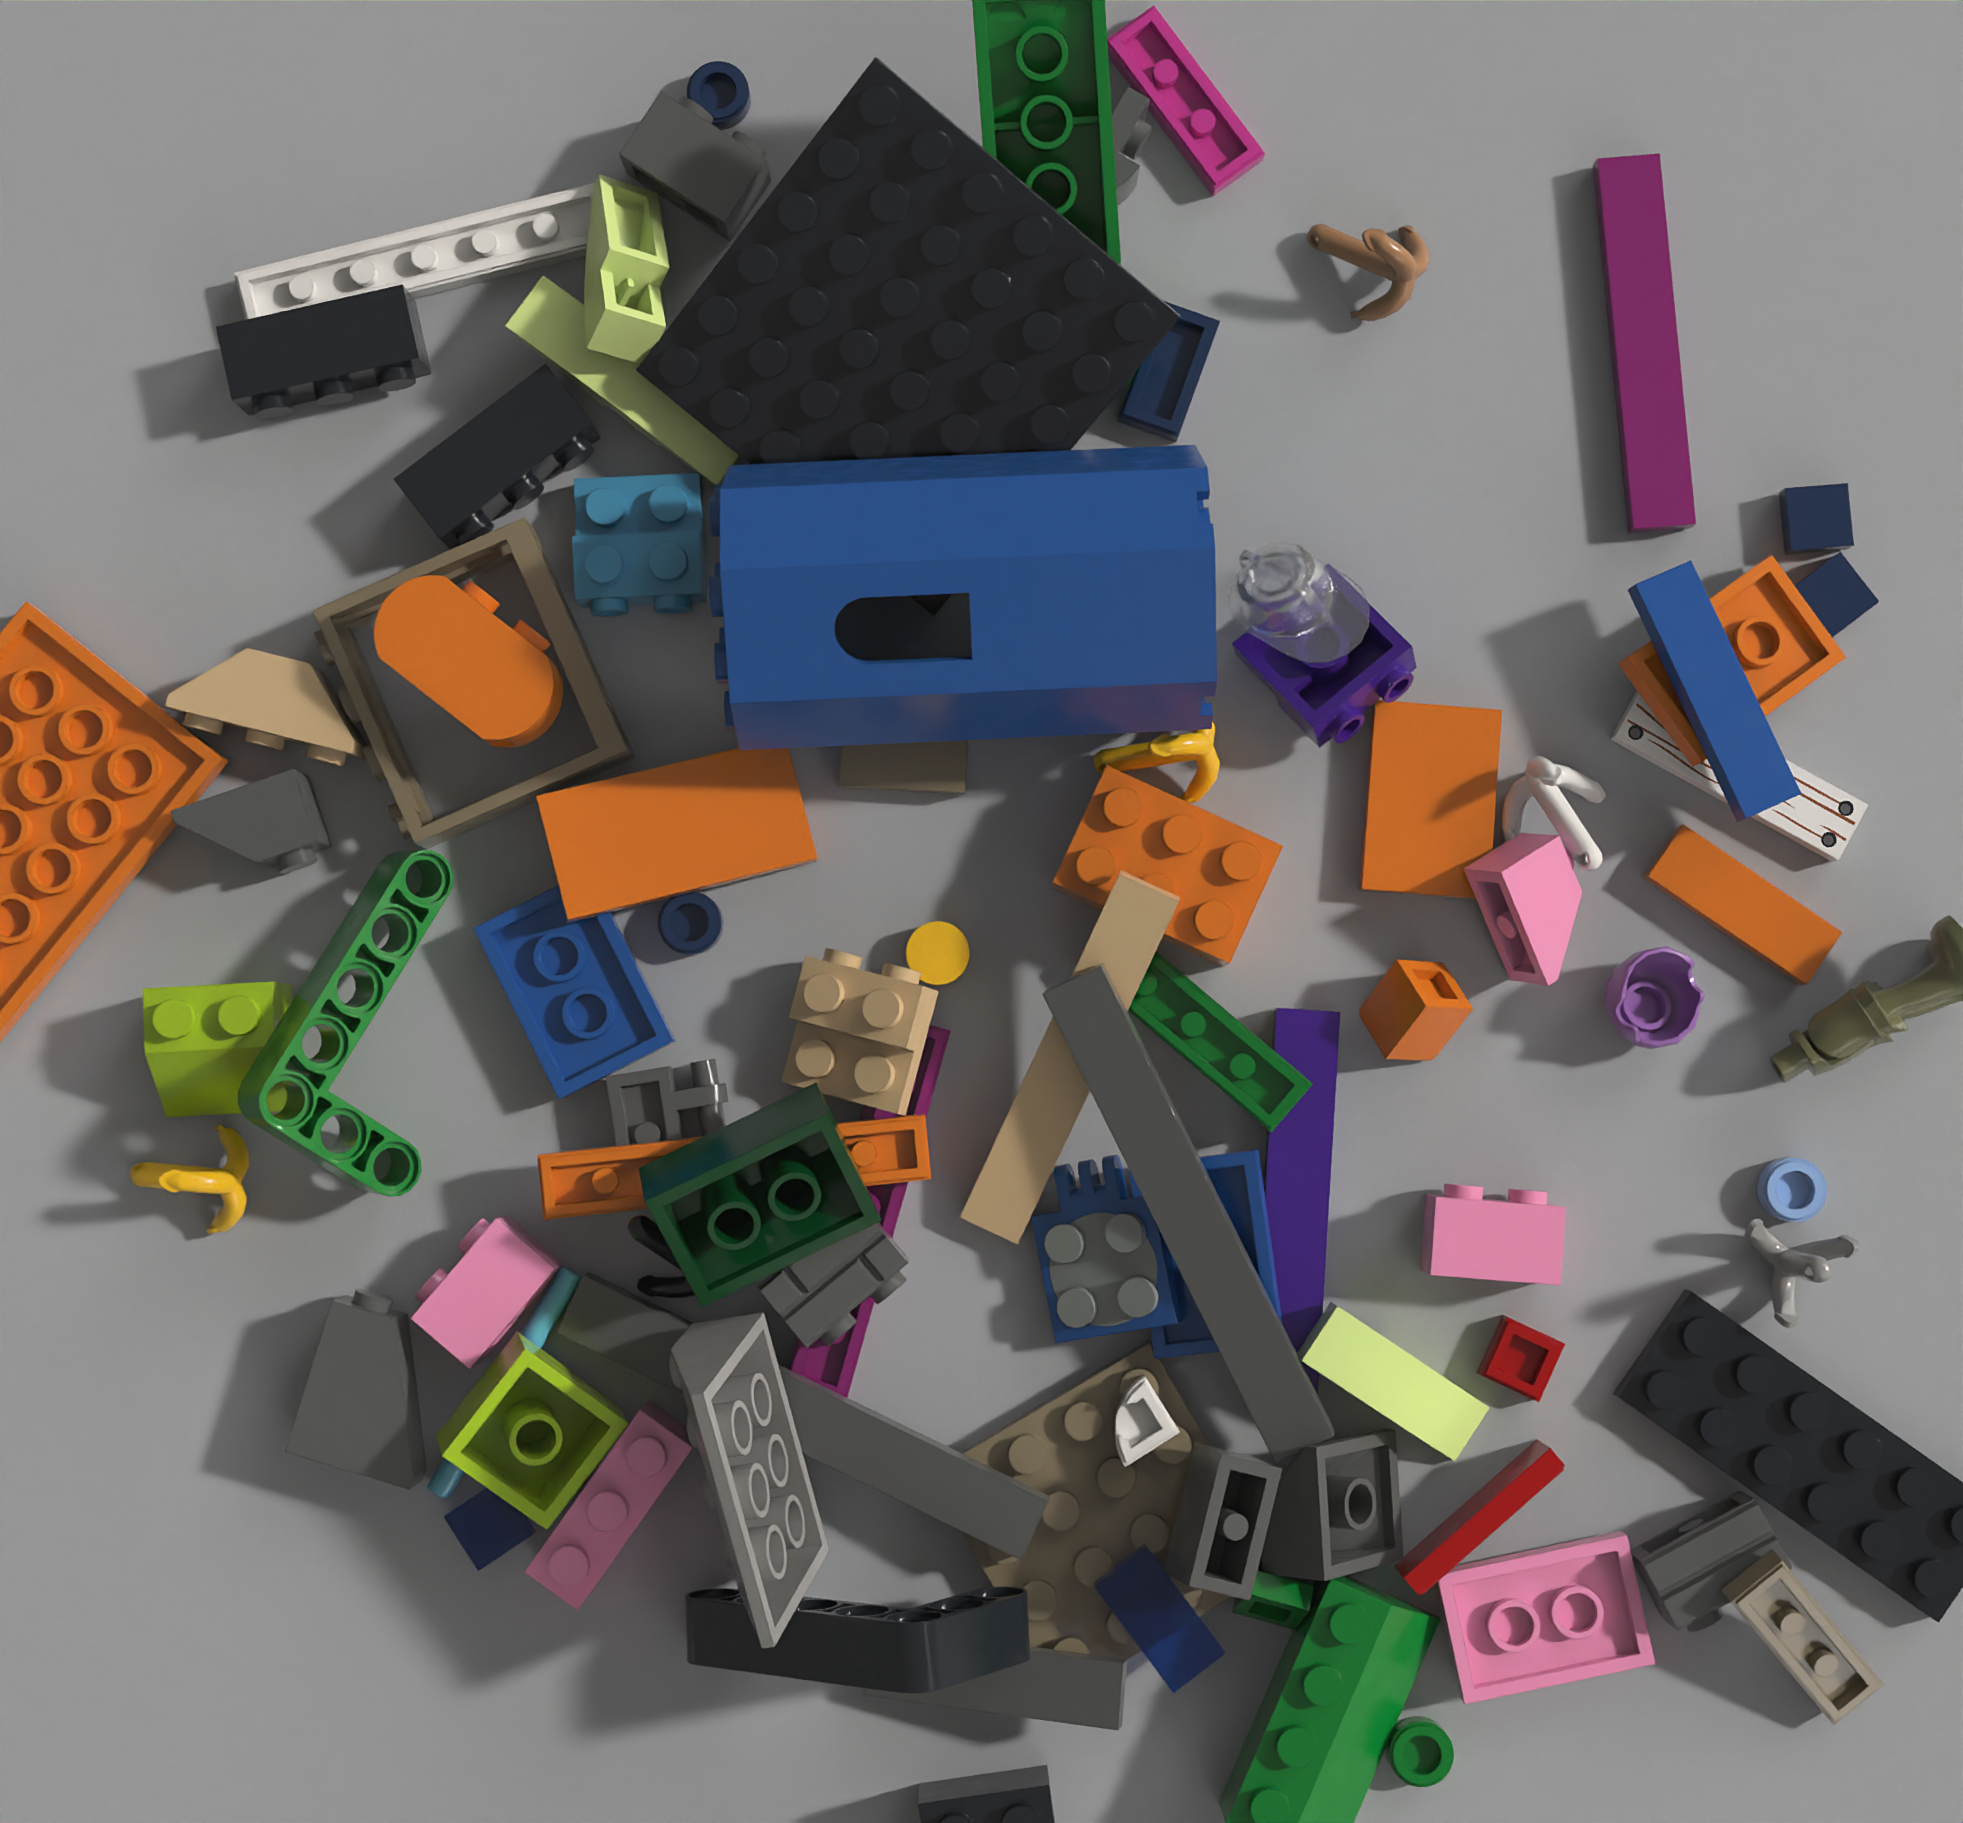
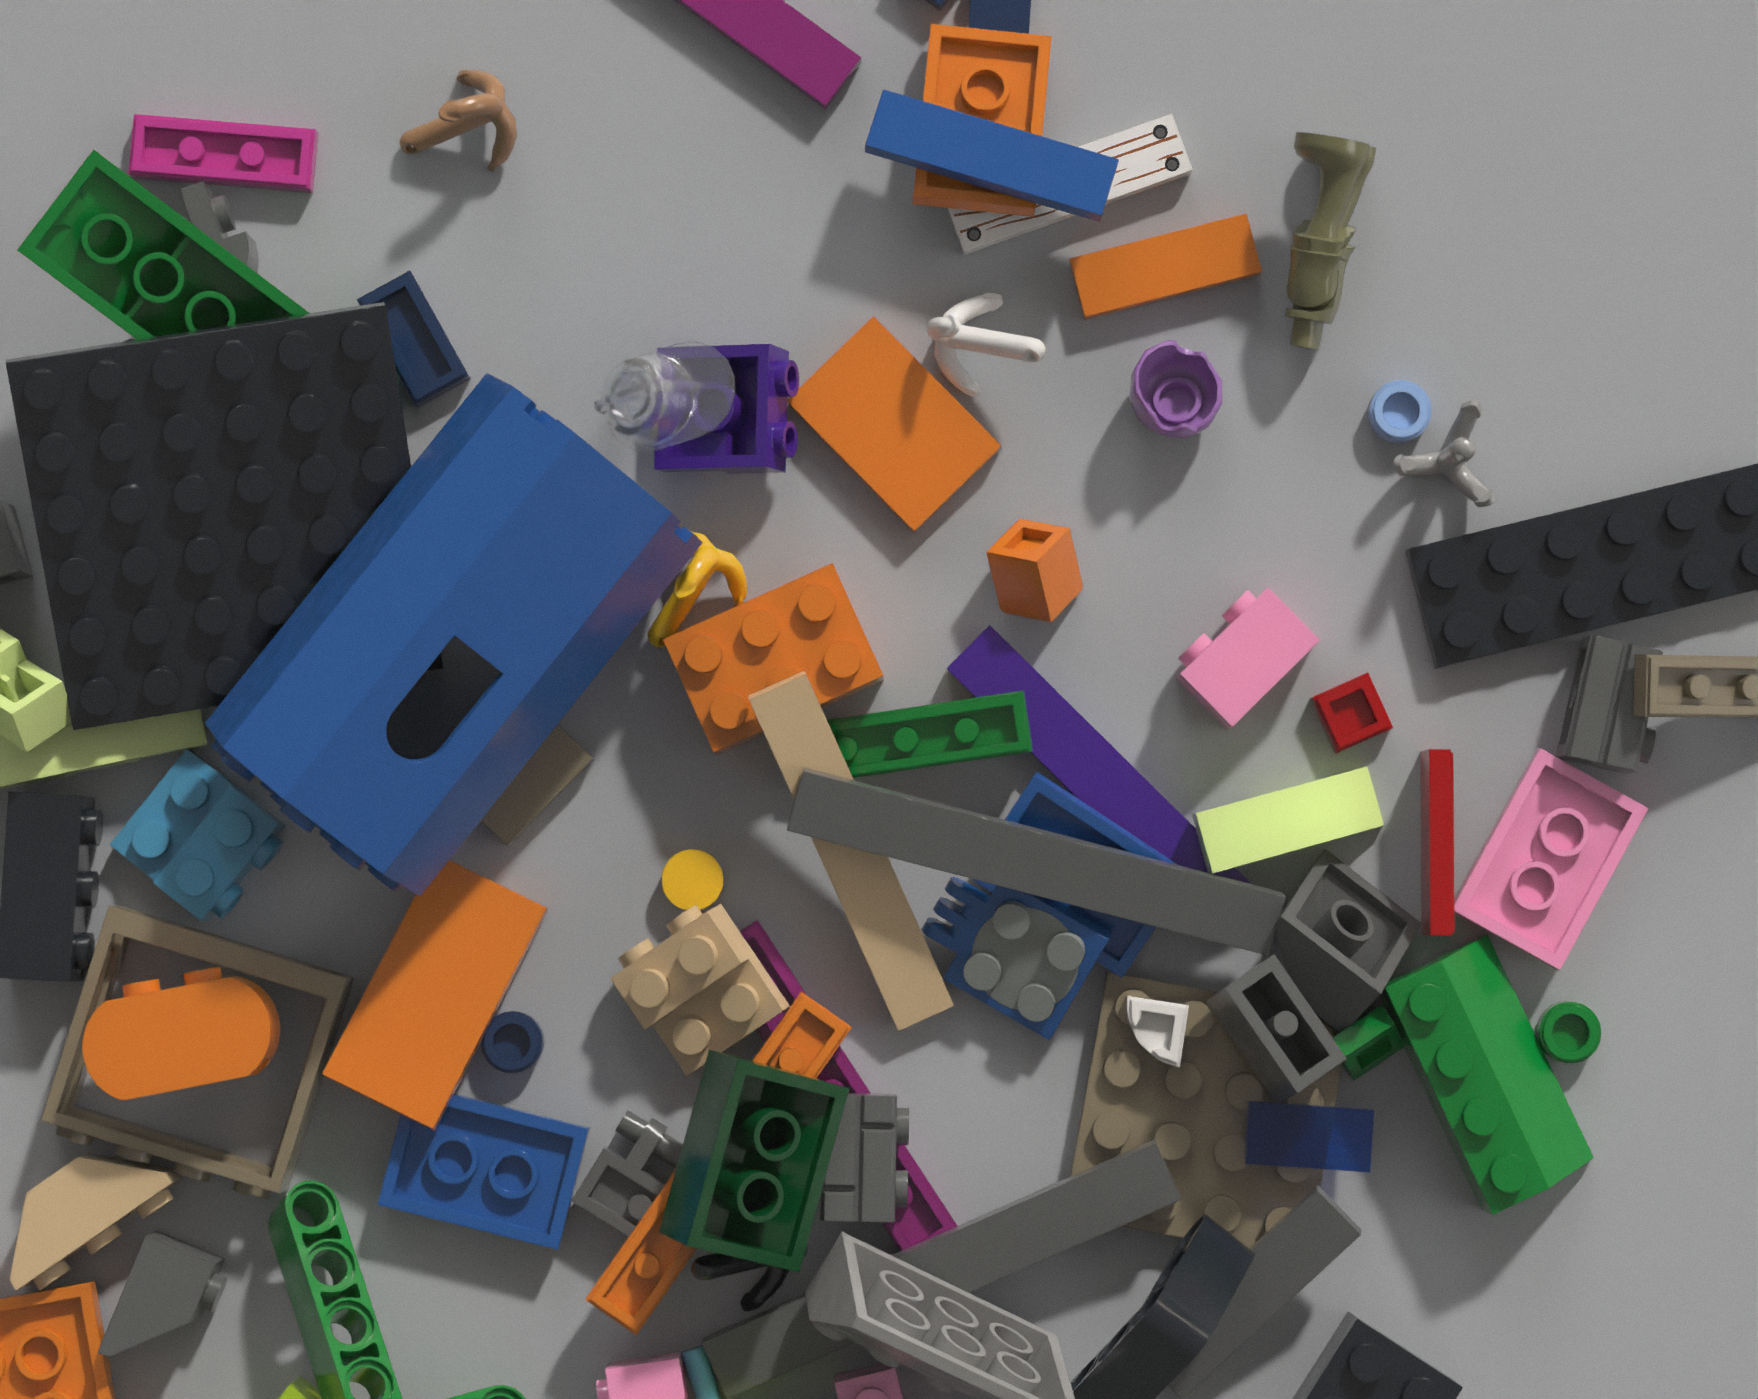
camera: 50 degrees left, 0 degrees up
(1528, 903) = (1028, 421): bright pink slope -> none

